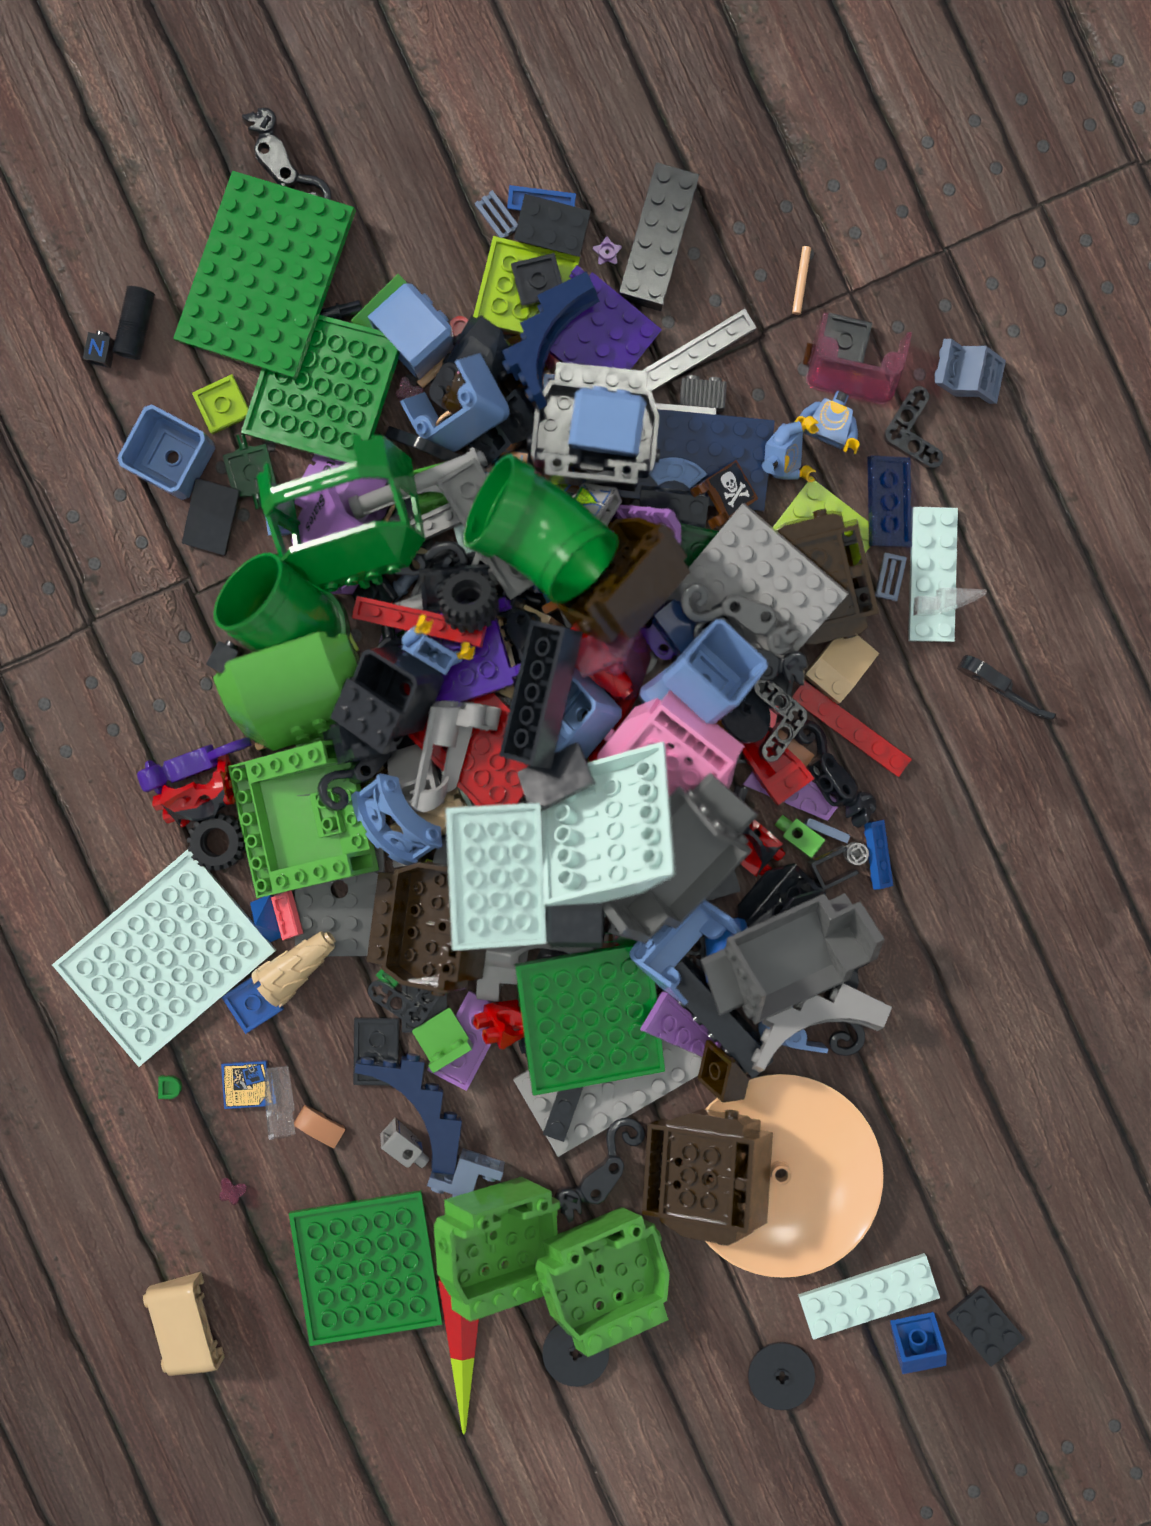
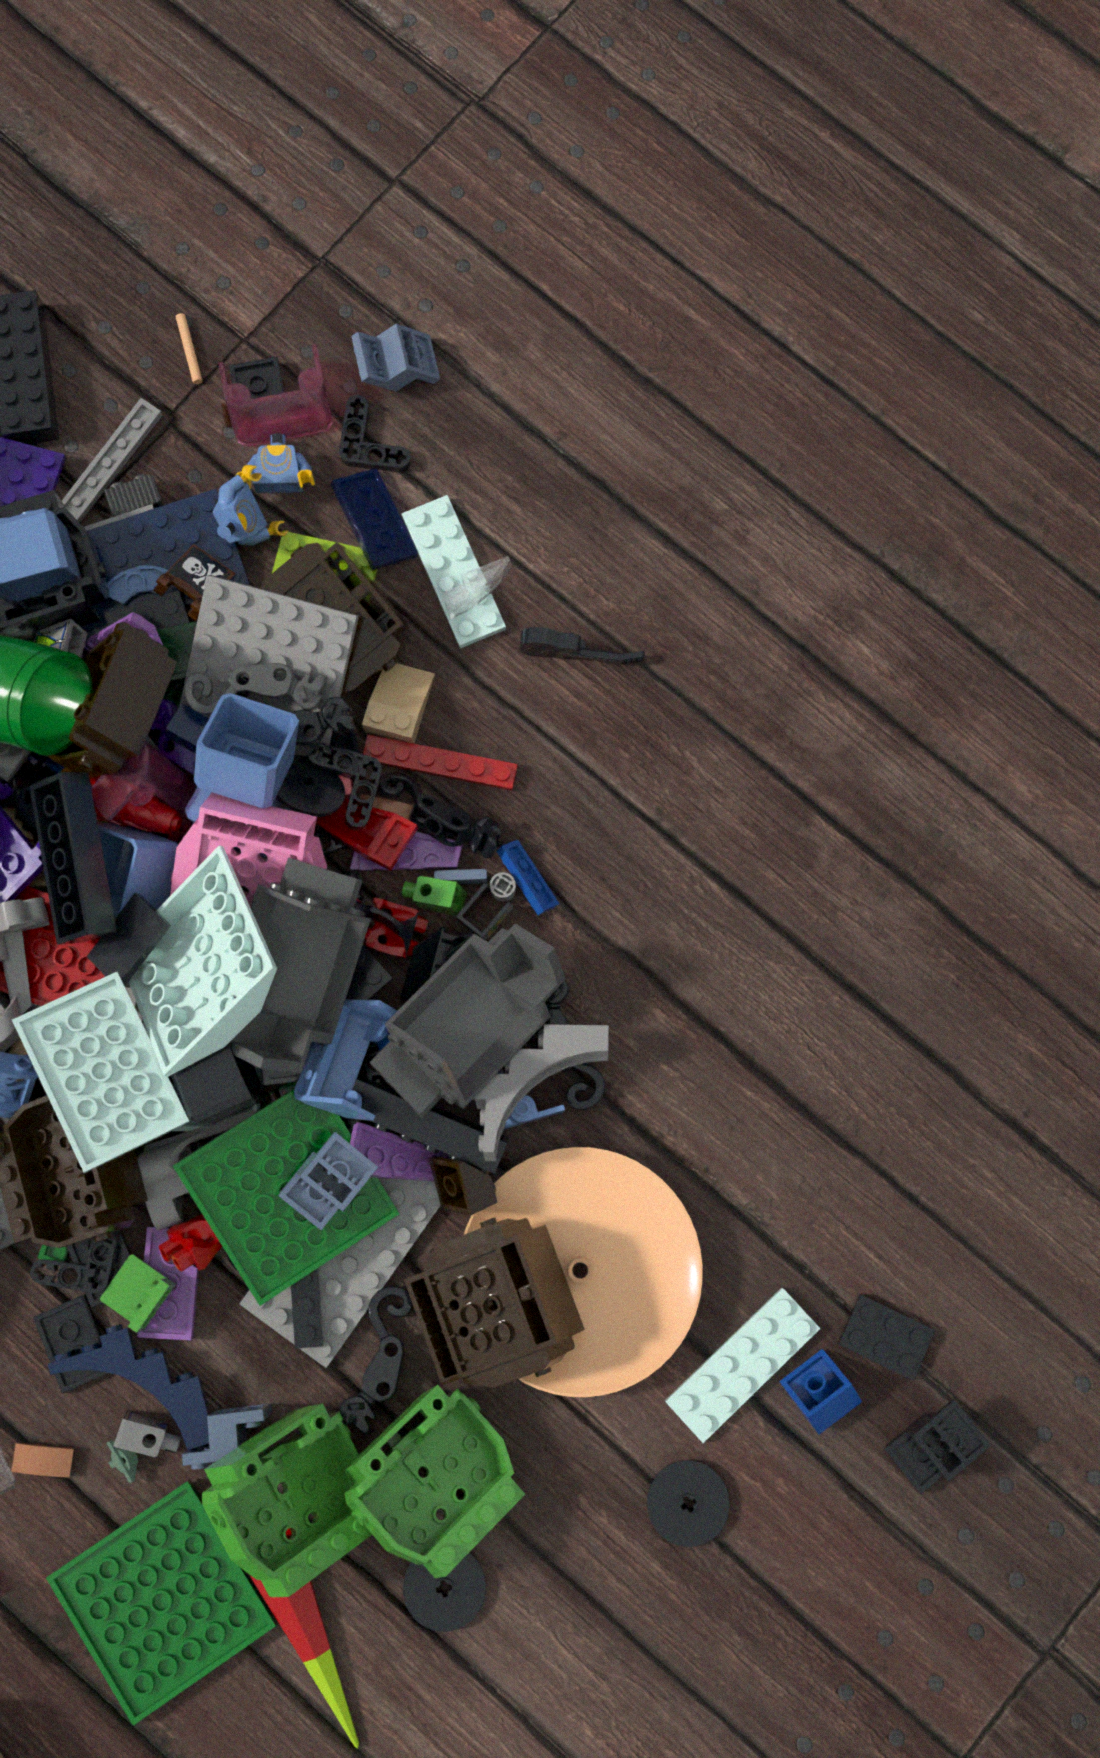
camera: 25 degrees left, 10 degrees down
(378, 1155) = (124, 1461): none -> sand green piece
(627, 1030) = (328, 1181): none -> sand blue bracket
(886, 595) = (415, 612): sand blue tile -> none
(986, 1423) = (937, 1446): none -> black bracket

